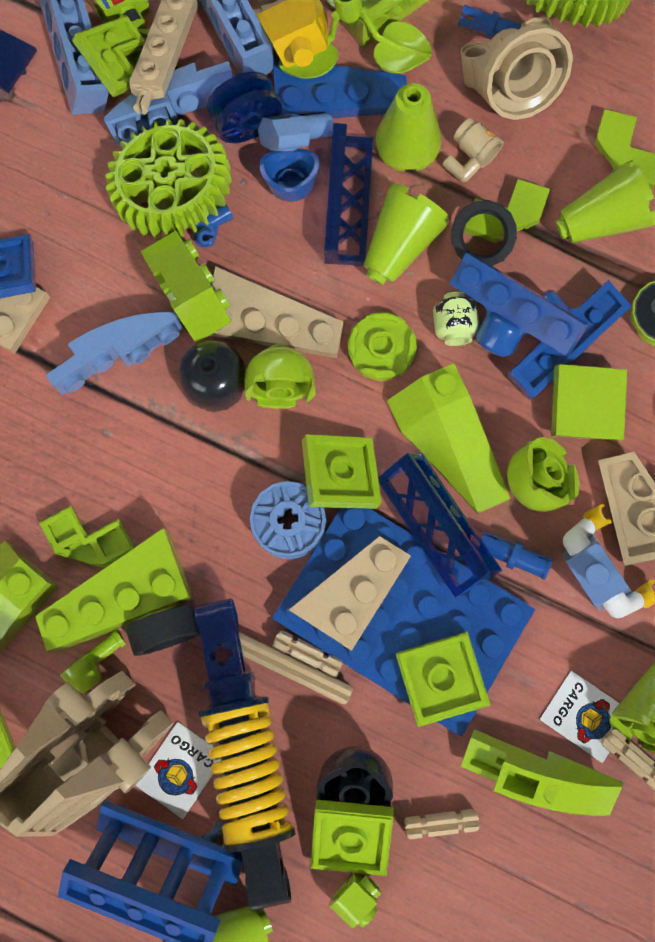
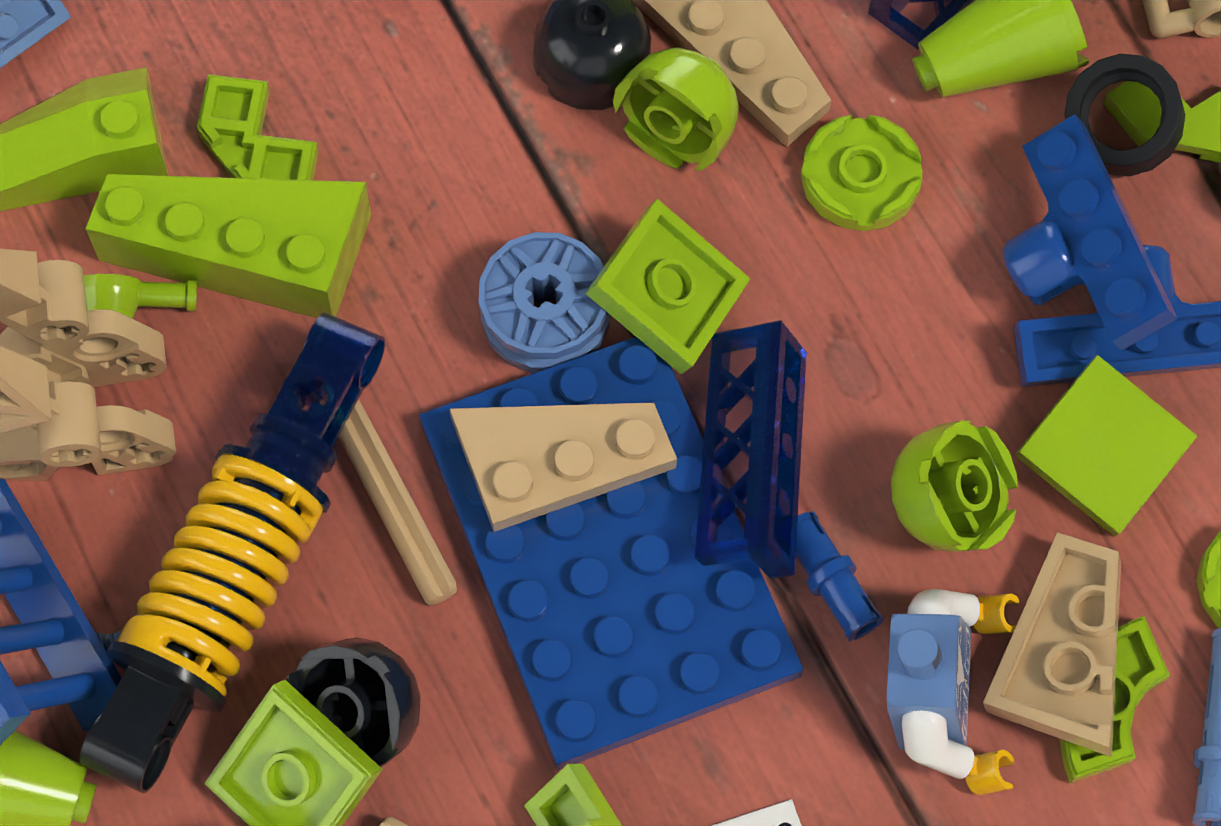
camera: 30 degrees right, 10 degrees down
(162, 630) = (256, 314): black tyre -> none
(178, 771) = (127, 525): white sticker -> none
(307, 653) = (430, 497): tan axle -> none
(442, 679) = (590, 658): lime tile -> none
(446, 429) = (863, 339): lime wedge -> none
(456, 319) = (996, 203): yellowish green head -> none

